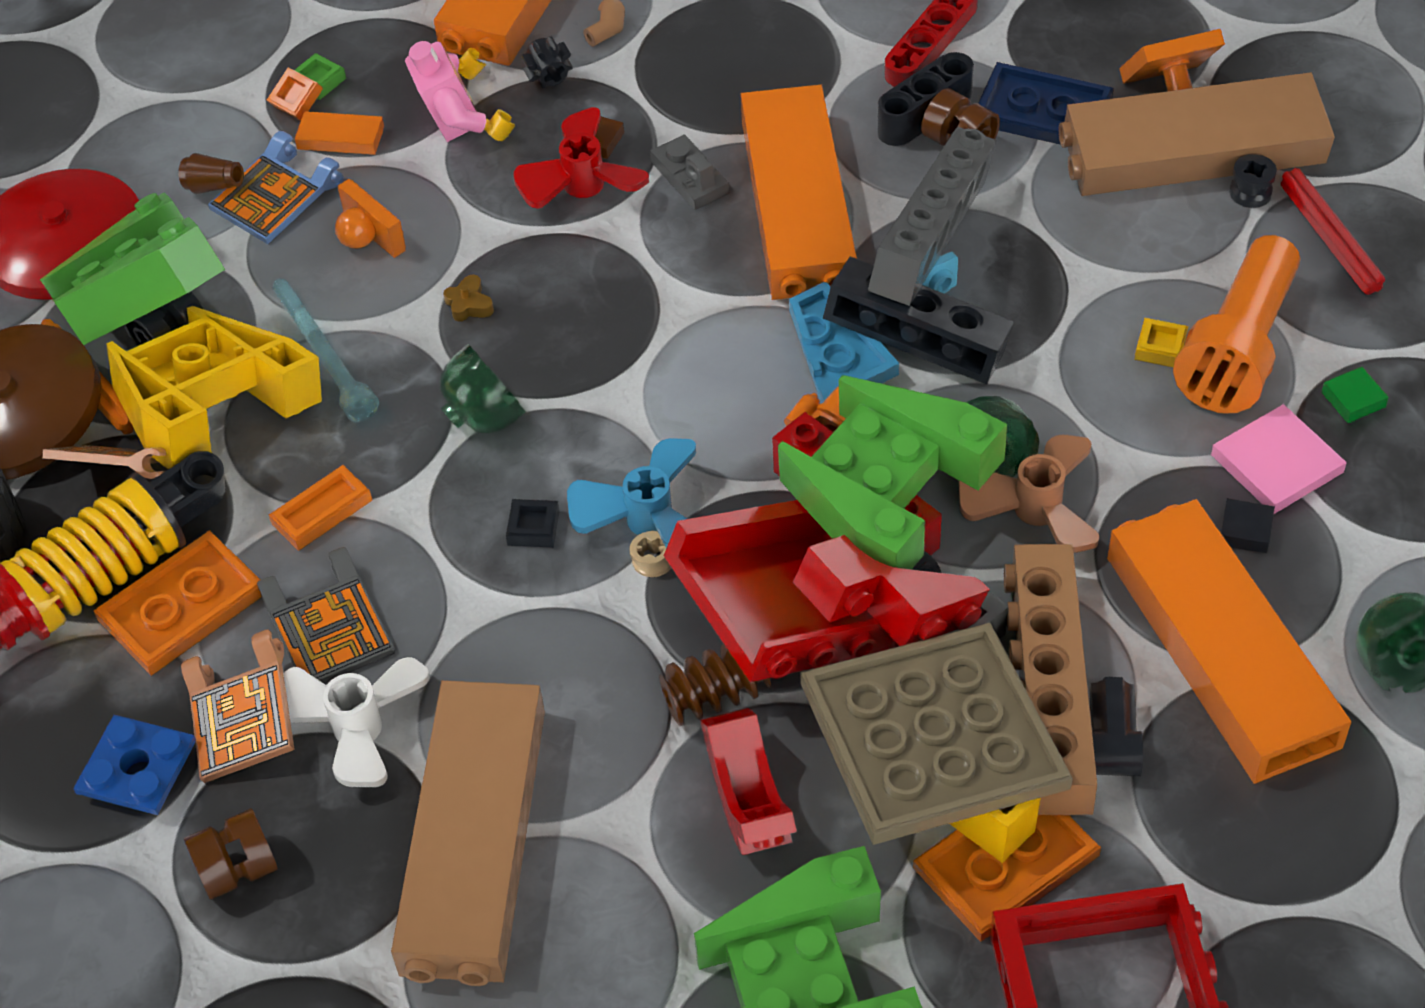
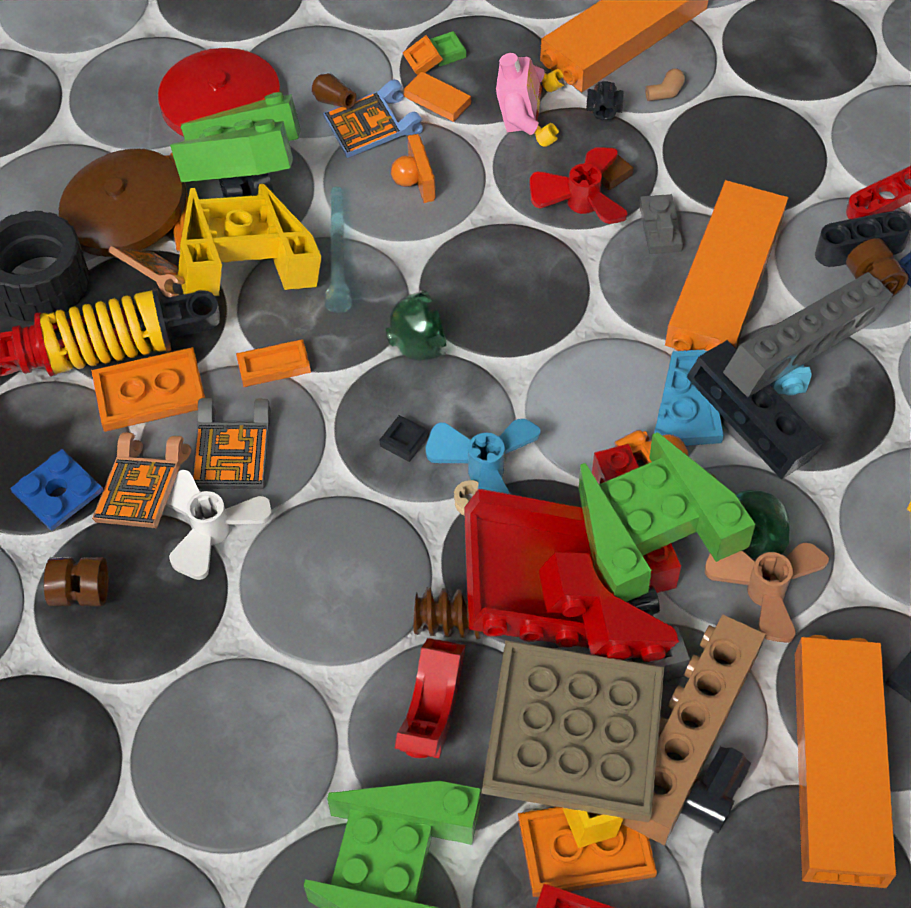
camera: 25 degrees right, 5 degrees up
(467, 299) = (453, 255): pearl gold piece -> none
(469, 834) = (233, 642): medium nougat brick -> none

